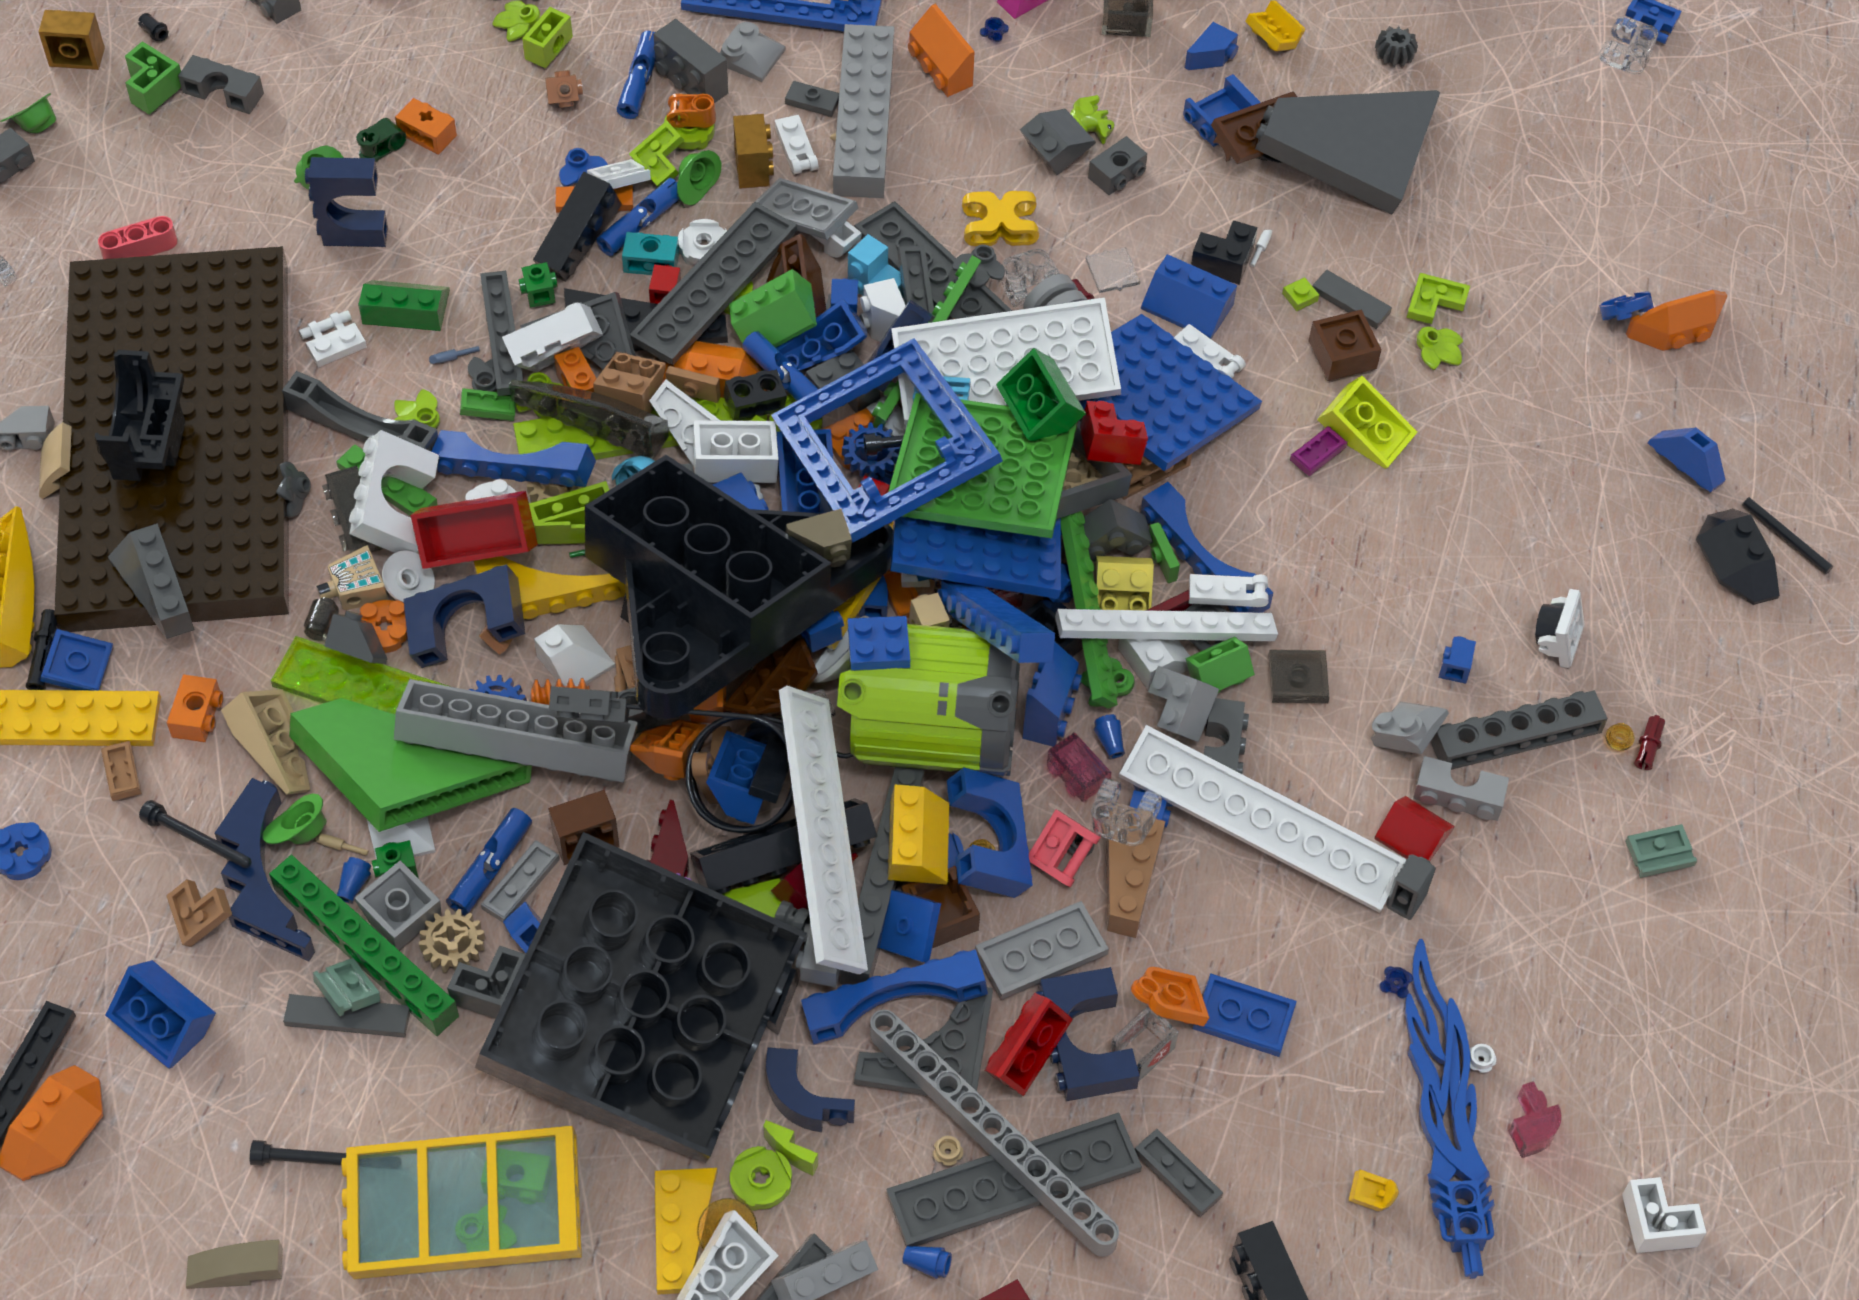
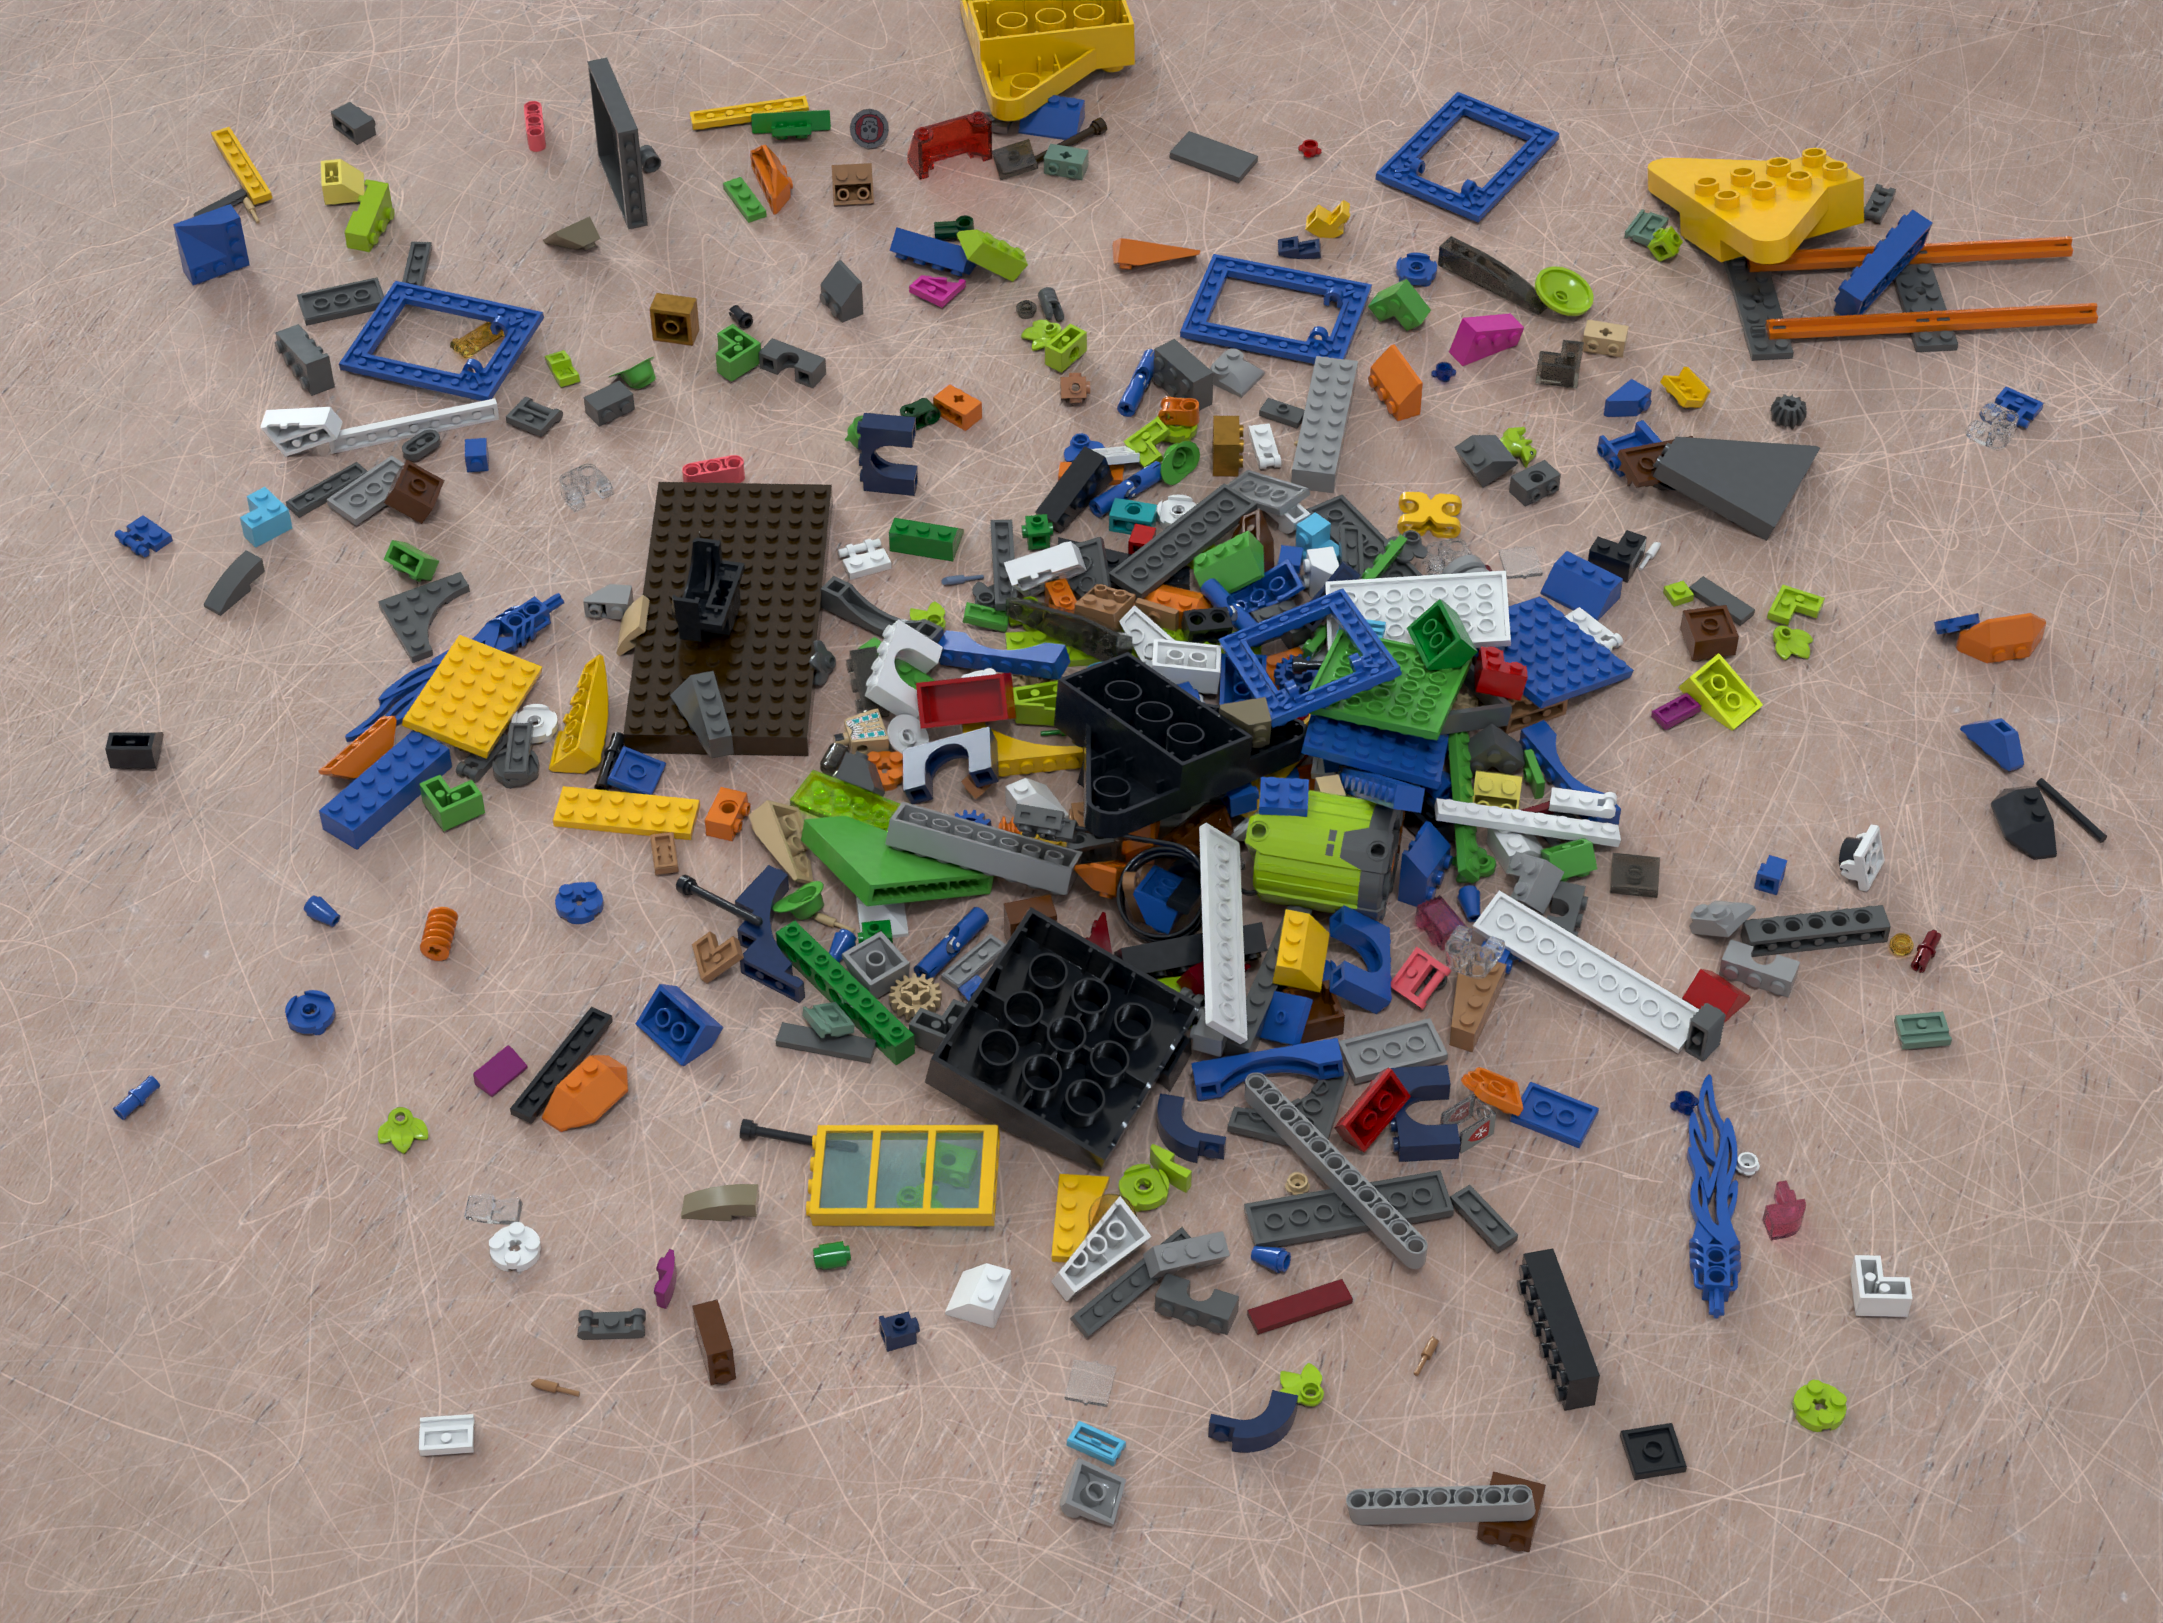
camera: 10 degrees right, 10 degrees down
(1373, 1191) = (1642, 1247): yellow plate -> none

